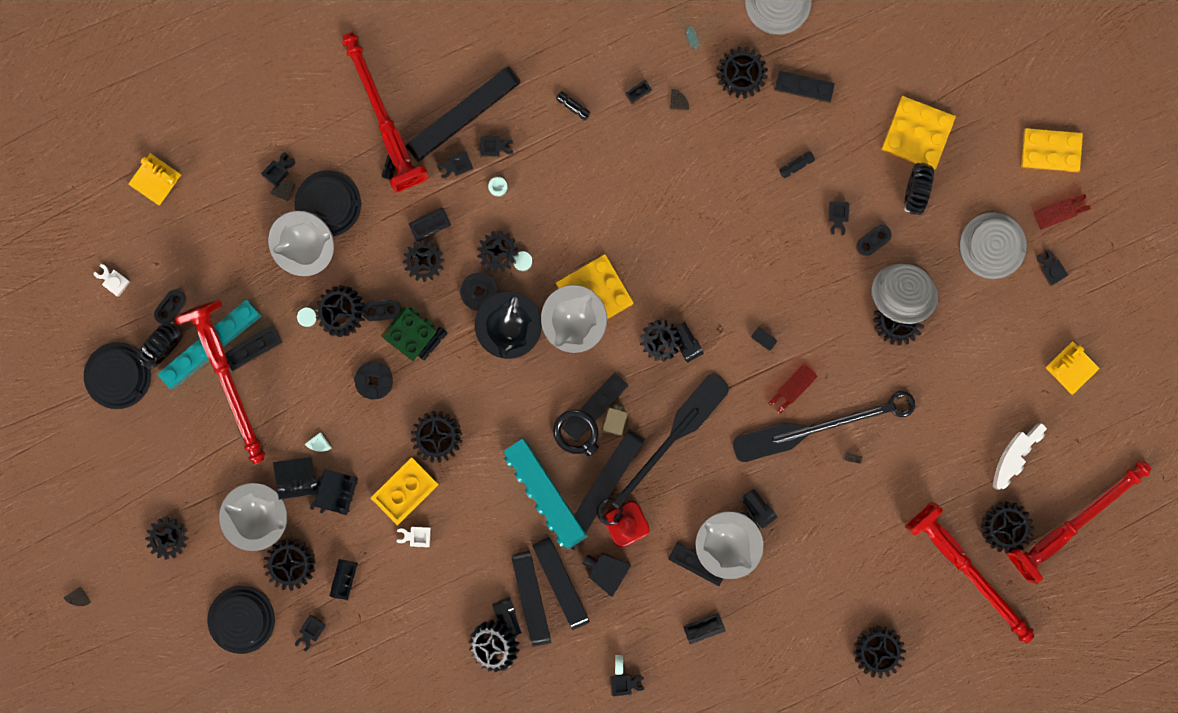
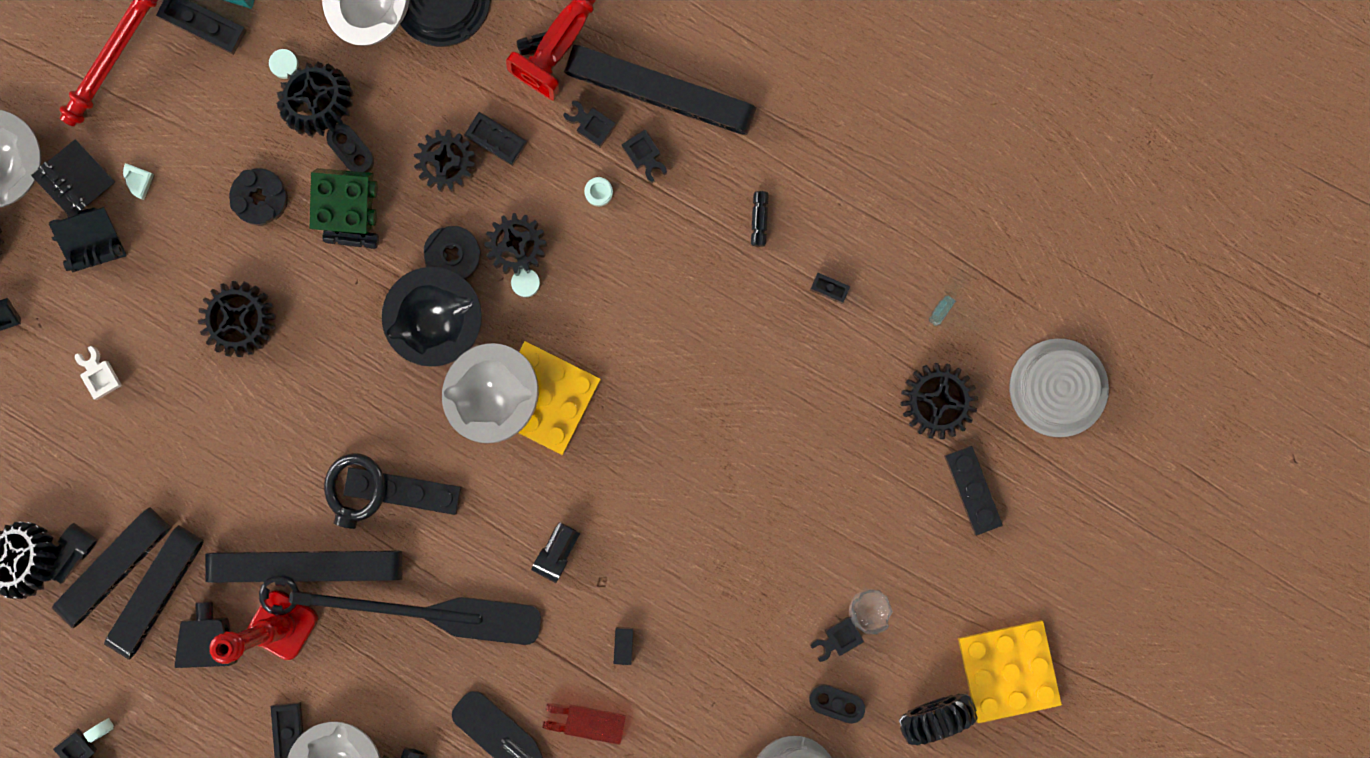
camera: 55 degrees right, 0 degrees up
(404, 491) = (145, 324): yellow plate -> none
(545, 493) = (249, 500): teal brick -> none
(615, 420) = (397, 527): dark tan brick -> none
(667, 336) = (537, 519): black gear -> none
(678, 101) = (851, 345): clear smoke tile -> none
(796, 164) = (869, 545): black axle -> none
(834, 187) = (870, 611): none -> clear hair

